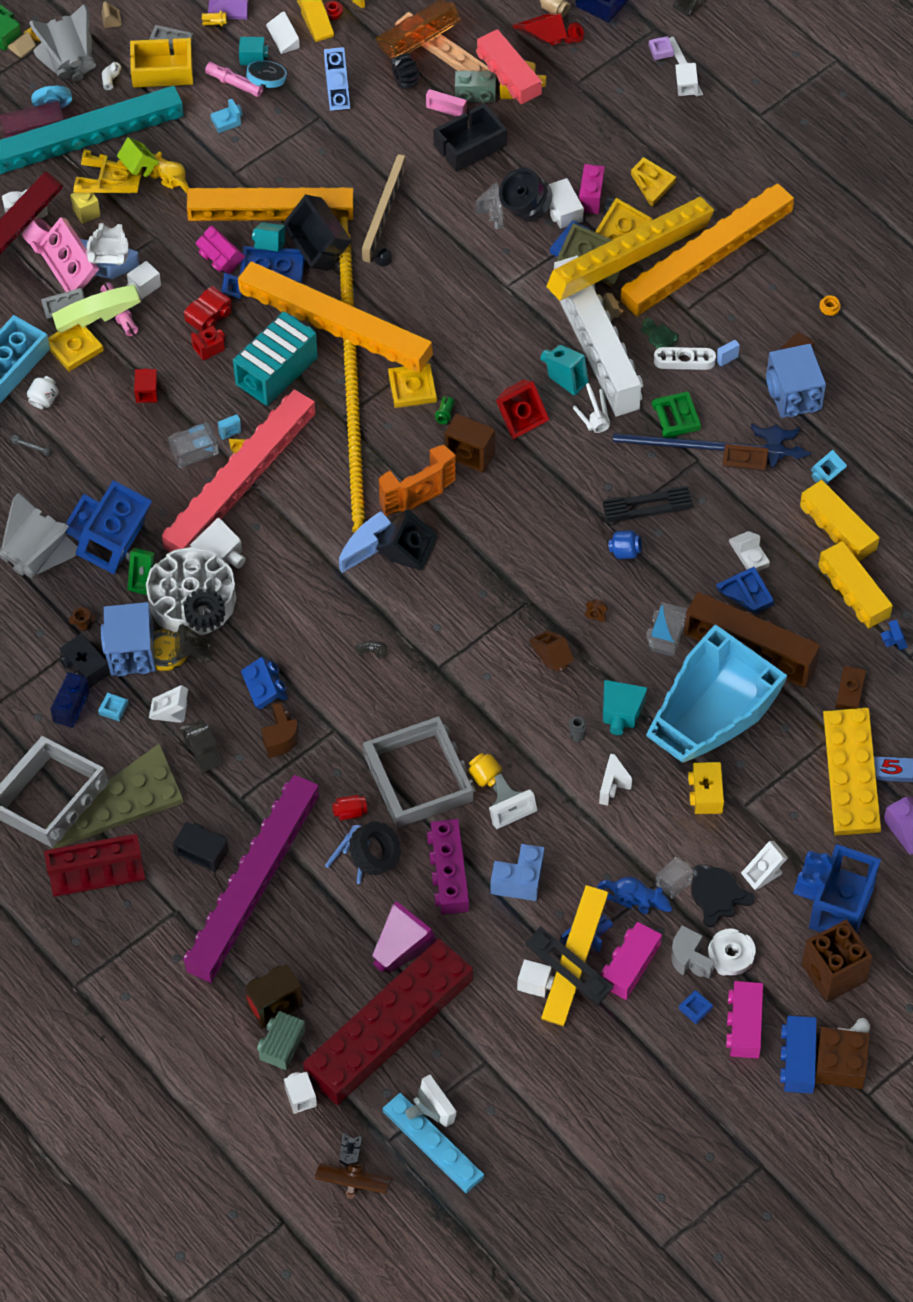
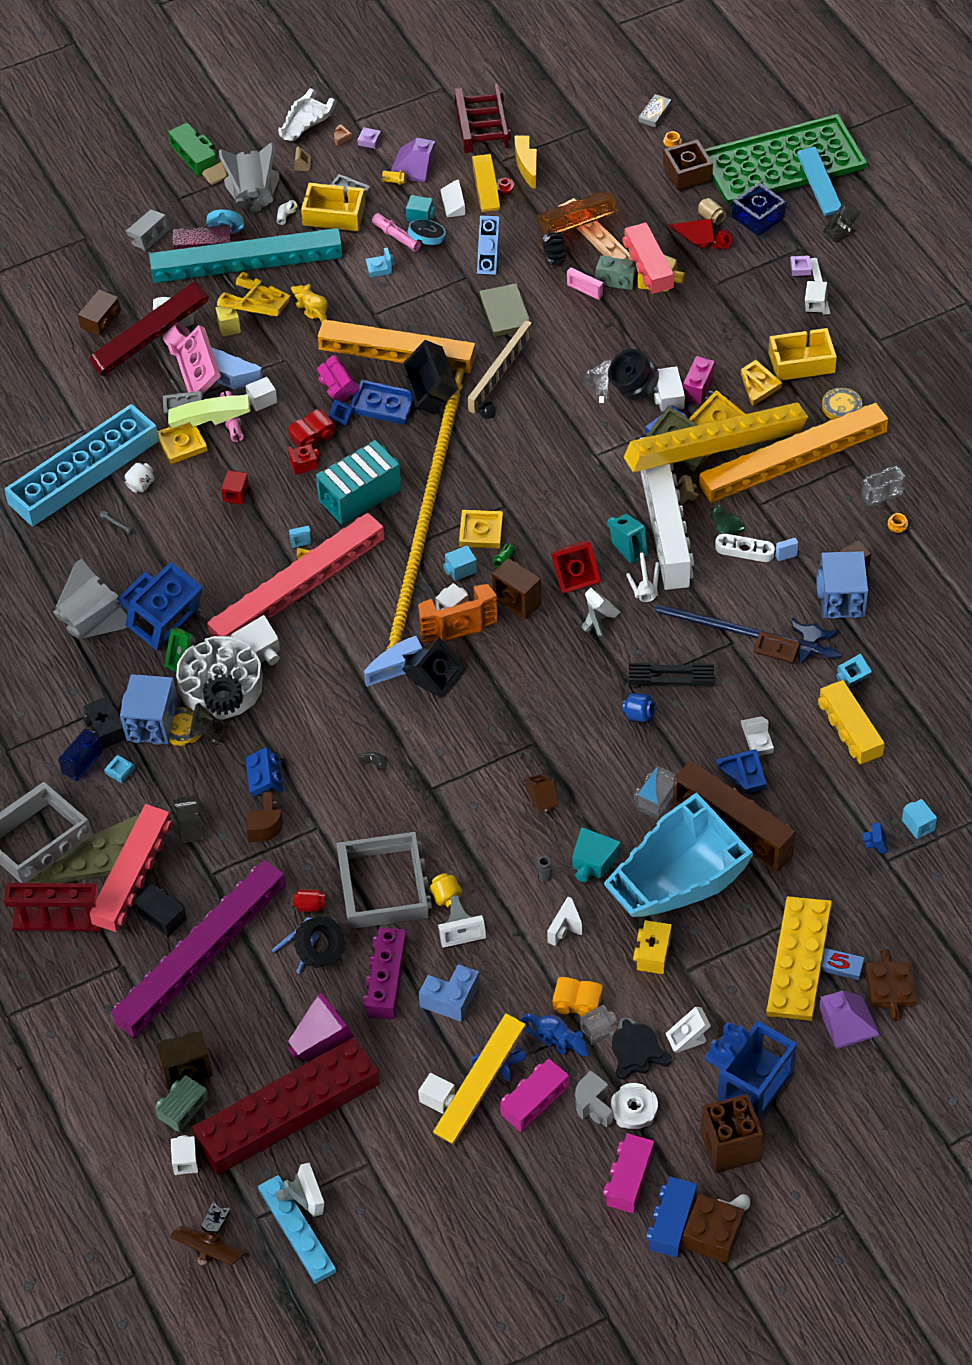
camera: 15 degrees right, 5 degrees down
(82, 613) = (114, 679): reddish brown plate -> none
(107, 245) = (233, 357): white animal -> none
(137, 155) = (286, 283): lime hinge -> none
(160, 808) = (130, 868): none -> coral brick
(170, 705) = (171, 777): white slope -> none
(193, 445) = (261, 547): clear brick -> none
(269, 236) = (386, 374): teal brick -> none
(335, 317) = (425, 455): light orange brick -> none
(370, 145) = (503, 309): none -> tile
(403, 426) = (460, 563): none -> medium azure brick
(406, 465) = (451, 597): none -> white brick
(467, 145) = (591, 323): black piece -> none
(557, 450) = (599, 609): none -> piece
(594, 988) = (491, 1112): black container -> none
(596, 610) = (594, 762): reddish brown plate -> none
(645, 853) = (576, 996): none -> light orange brick
(683, 413) = (728, 597): green plate -> none
(686, 151) = (794, 360): none -> yellow piece
(695, 1007) = (584, 1151): blue plate -> none
(740, 188) = (840, 402): none -> tile
(807, 270) = (883, 486): none -> clear brick
(850, 688) = (820, 880): reddish brown plate -> none
(855, 585) = (850, 783): yellow brick -> none

